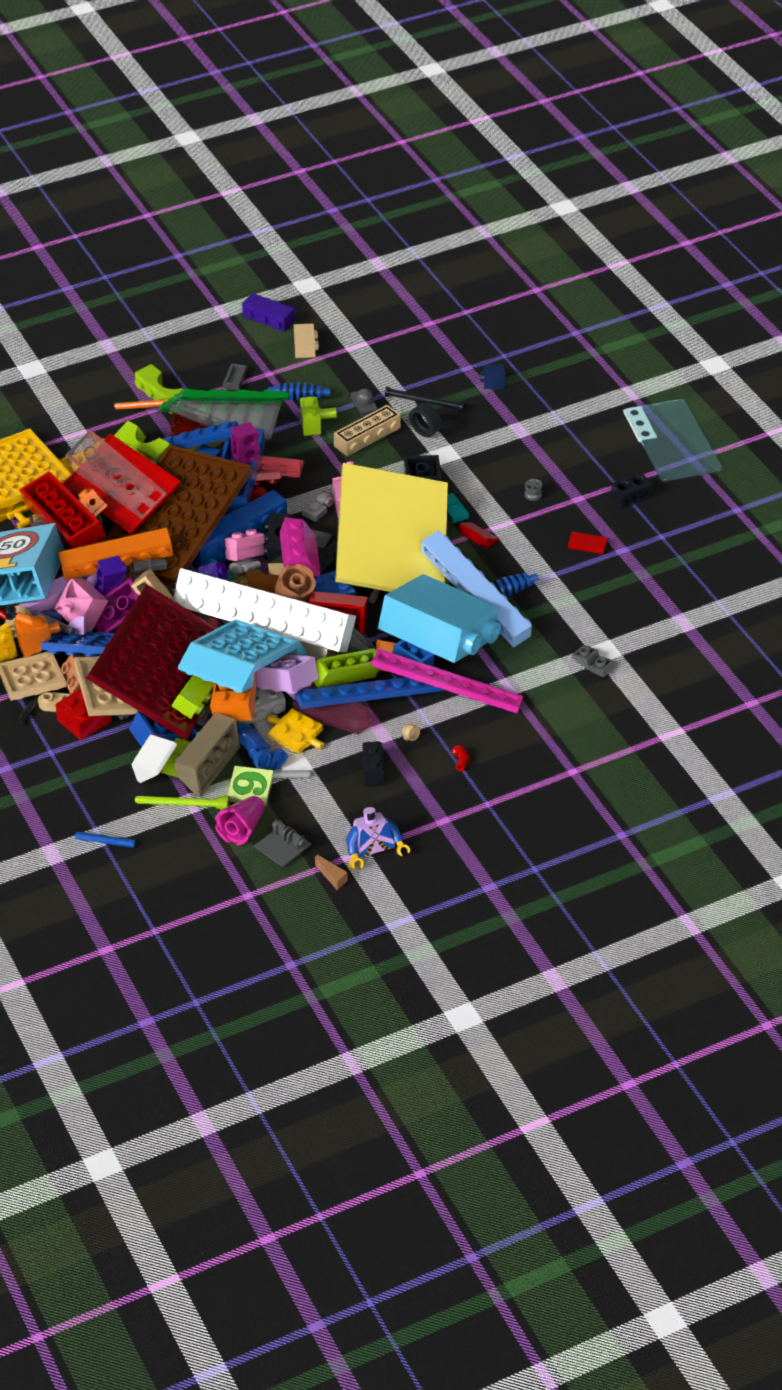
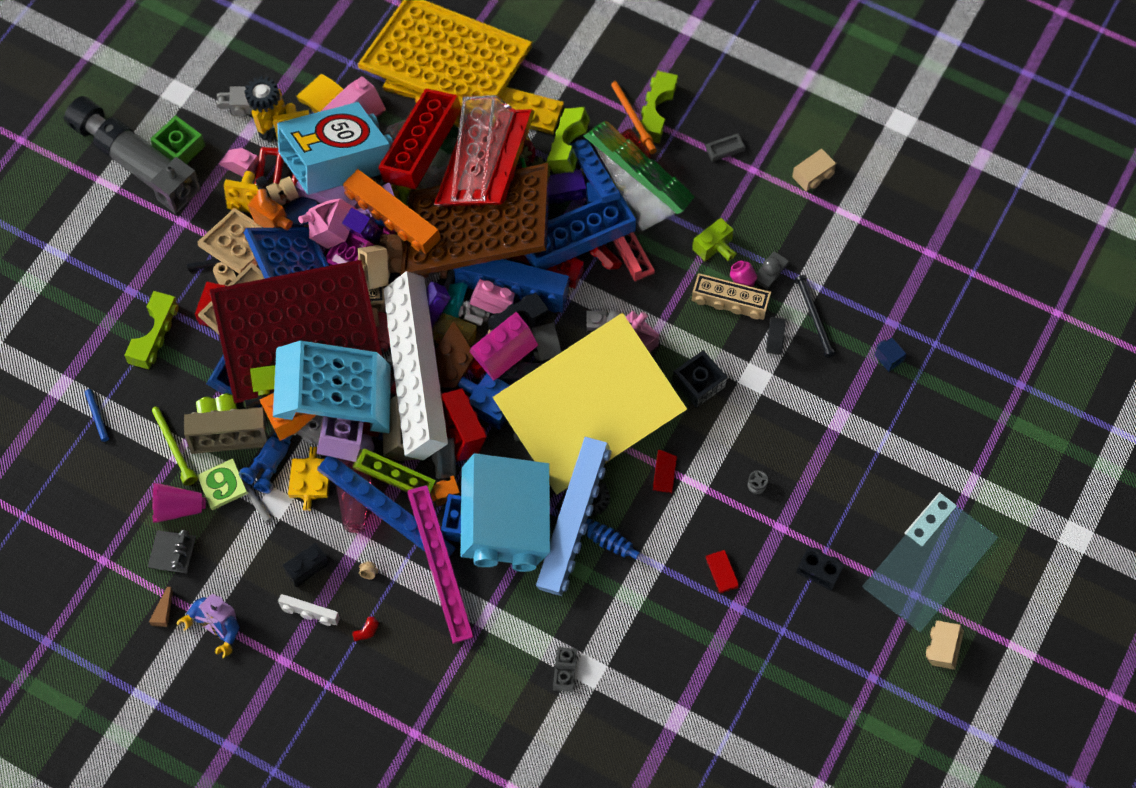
camera: 55 degrees right, 20 degrees up
(48, 752) = (143, 350): none -> lime arch
(63, 627) = (301, 211): flat silver bar -> none
(79, 624) = (306, 238): lavender tile -> none
(97, 507) = (443, 151): orange brick -> none
(143, 566) = (396, 244): dark grey axle -> none
(152, 757) = (190, 392): white slope -> none
(245, 443) = (588, 219): magenta brick -> none
(268, 312) = (829, 117): dark purple brick -> none
(296, 582) = (449, 364): nougat brick -> none
(299, 391) = (741, 209): blue piece -> none
(355, 411) = (743, 273): none -> dark pink head
(414, 780) = (308, 610): none -> white plate
(455, 510) = (684, 429): teal plate -> none
(745, 456) = (945, 644): none -> tan brick

